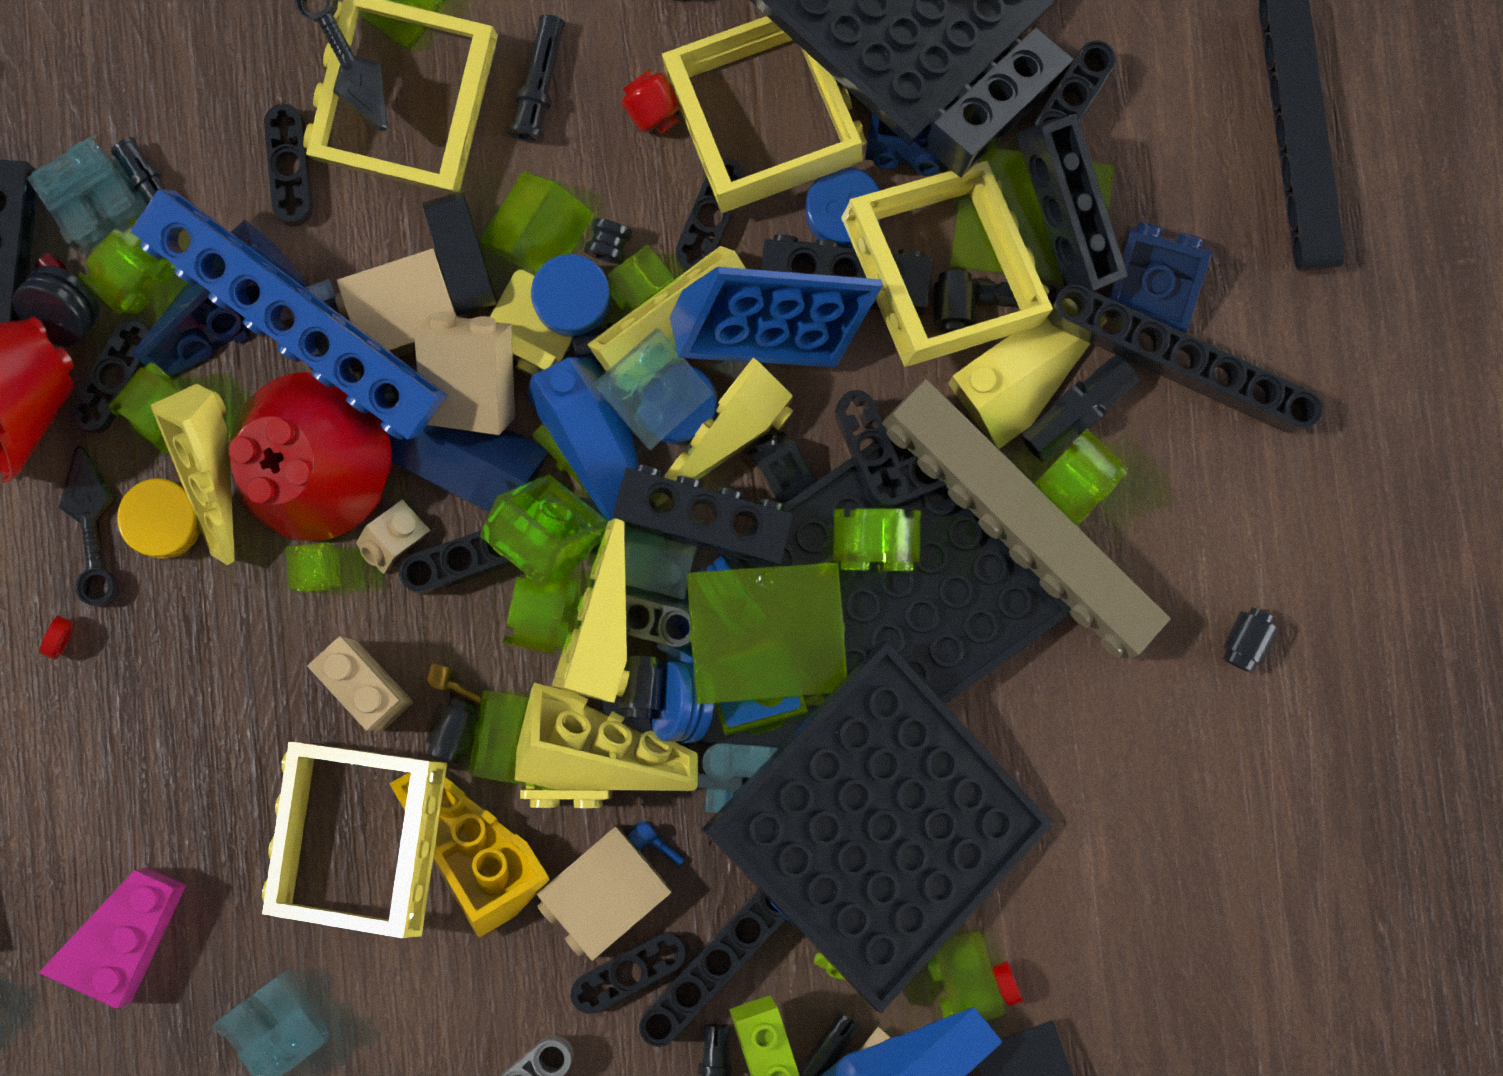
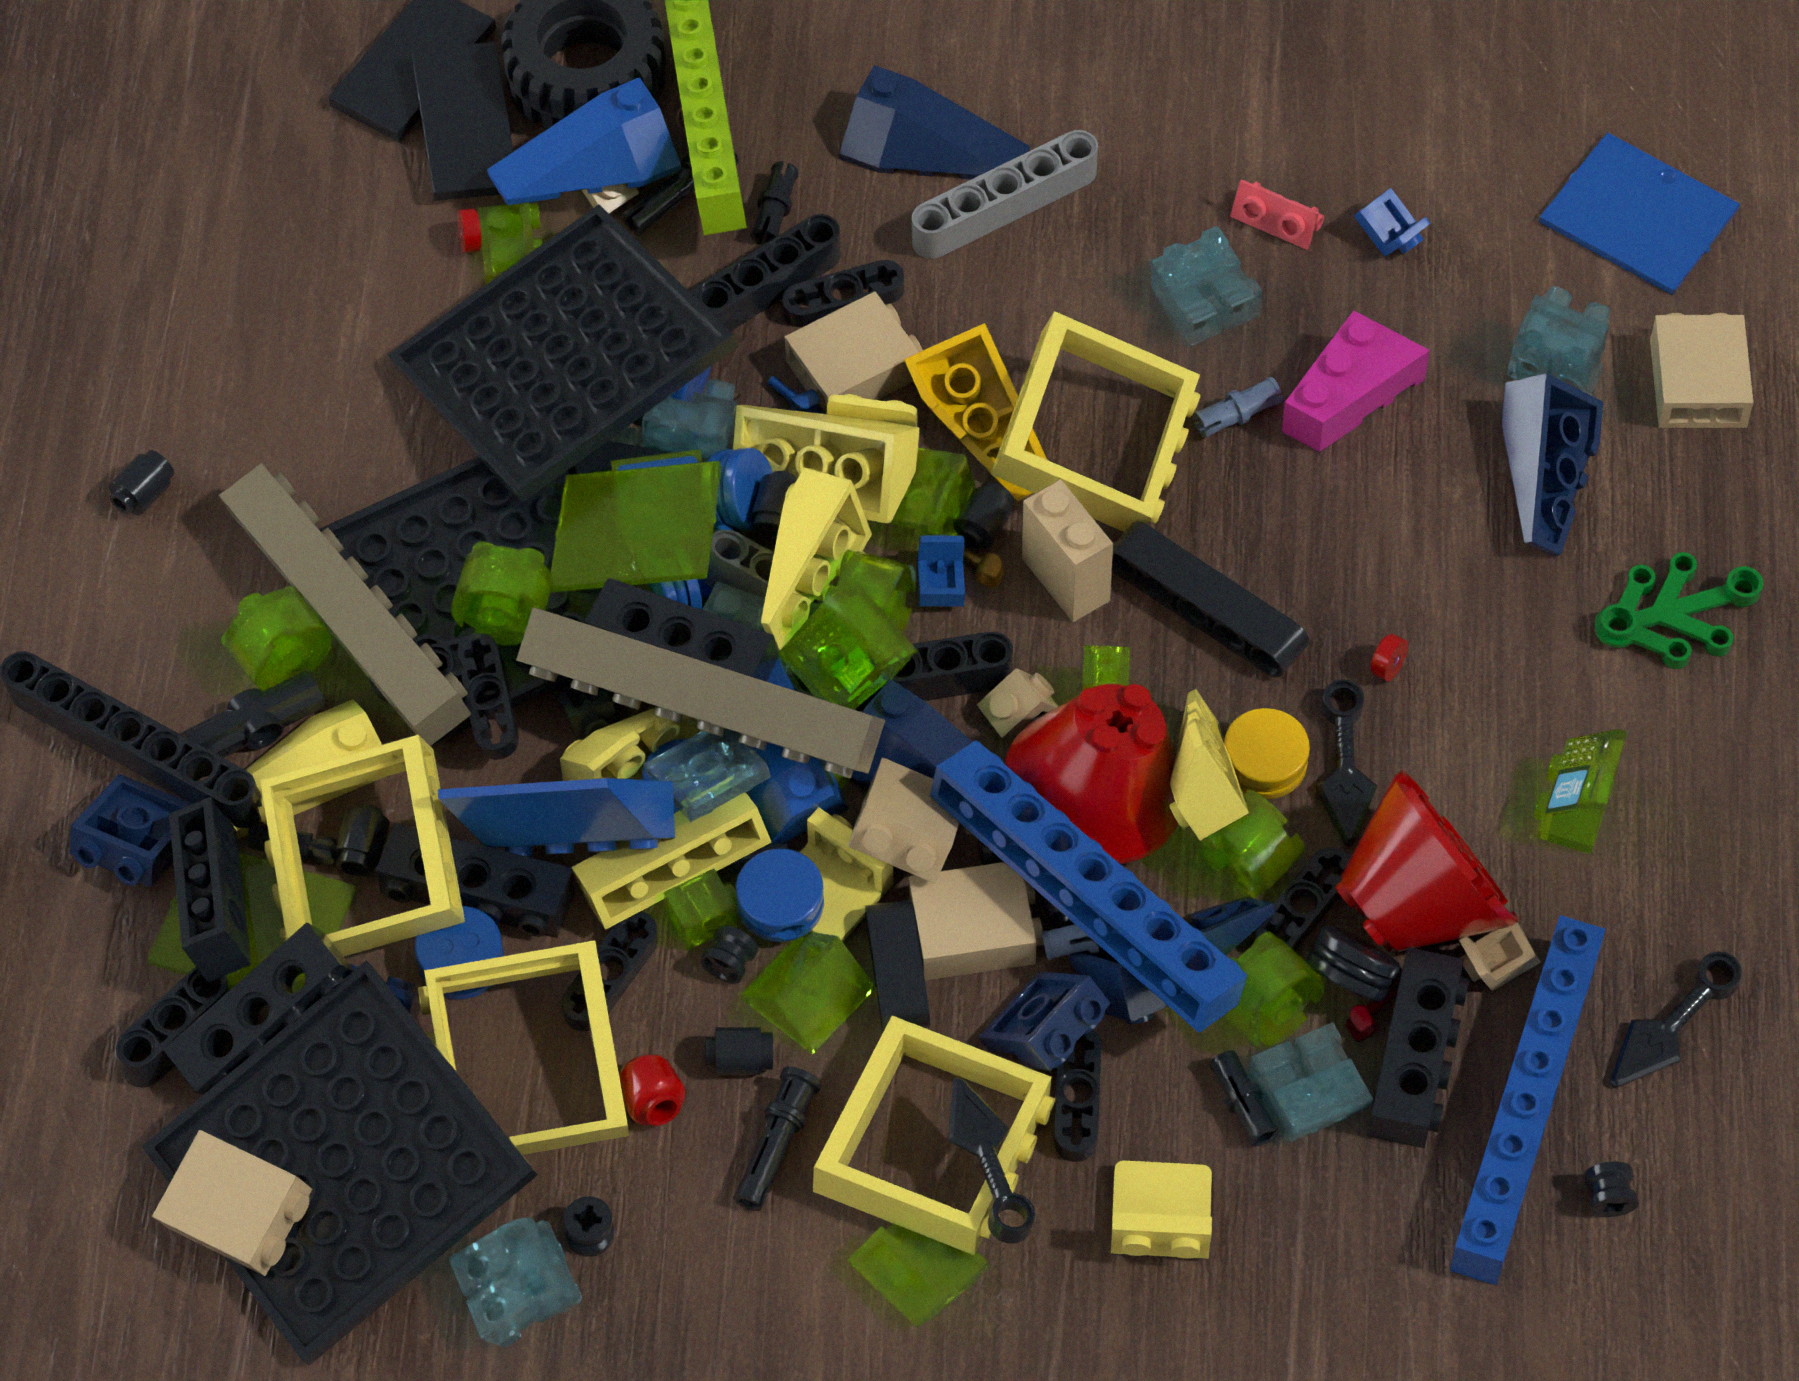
camera: 165 degrees left, 25 degrees down
(201, 60) = (1161, 1209): none -> light yellow bracket
(227, 898) = (1237, 407): none -> sand blue pin
(232, 674) = (1208, 599): none -> black beam
(320, 212) = (1047, 1019): none -> dark blue plate
(482, 659) = (940, 571): none -> blue bracket
(582, 153) = (739, 1050): none -> black brick
(668, 445) = (702, 691): none -> dark tan brick

